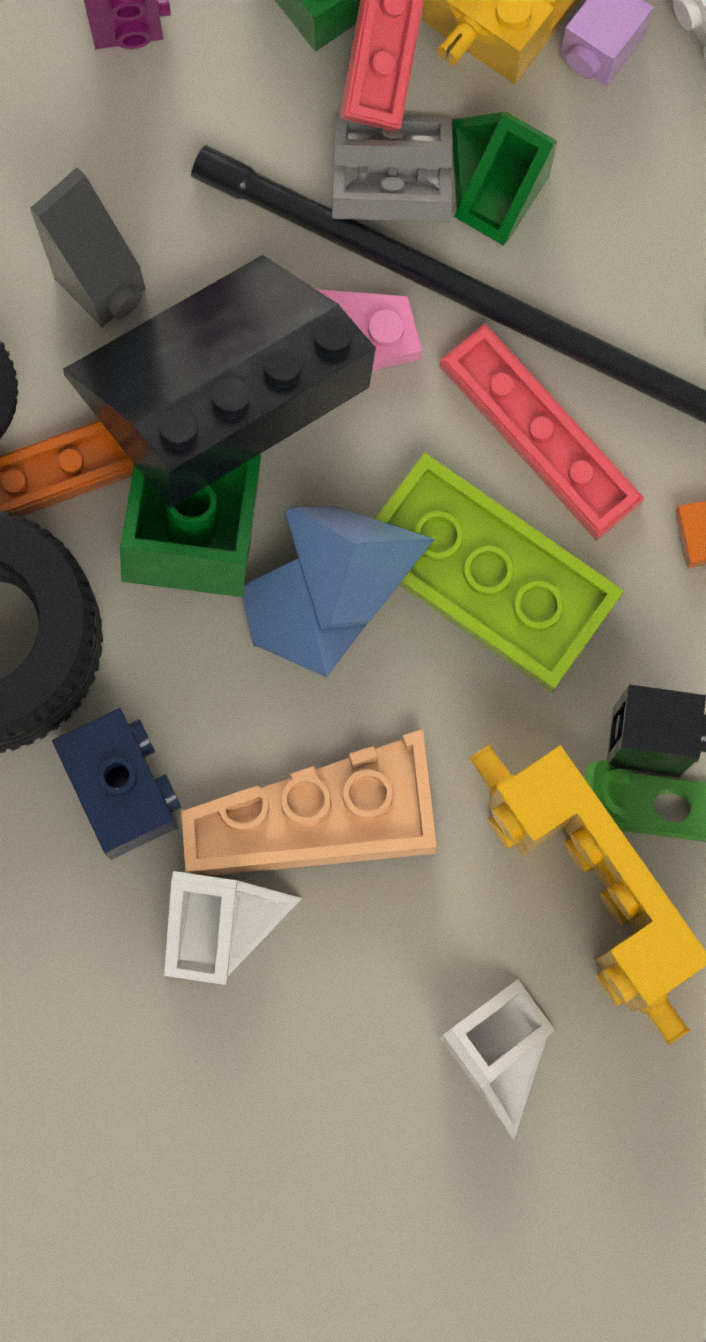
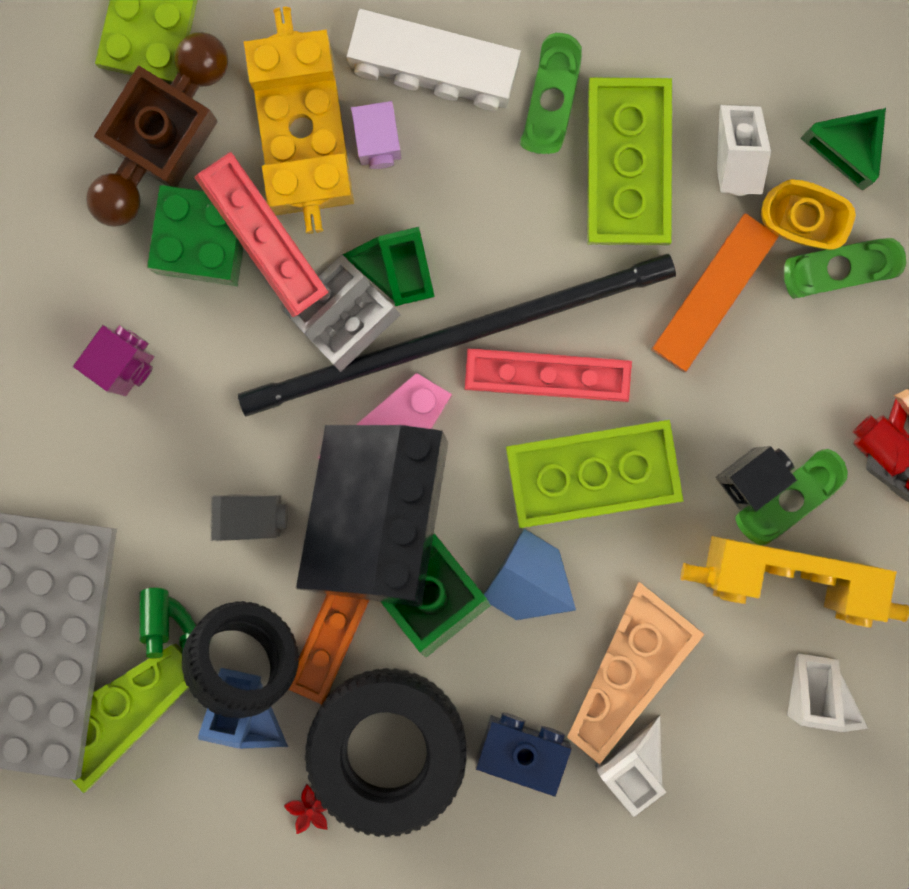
camera: 40 degrees left, 10 degrees up
(351, 561) = (527, 538): medium blue slope -> none

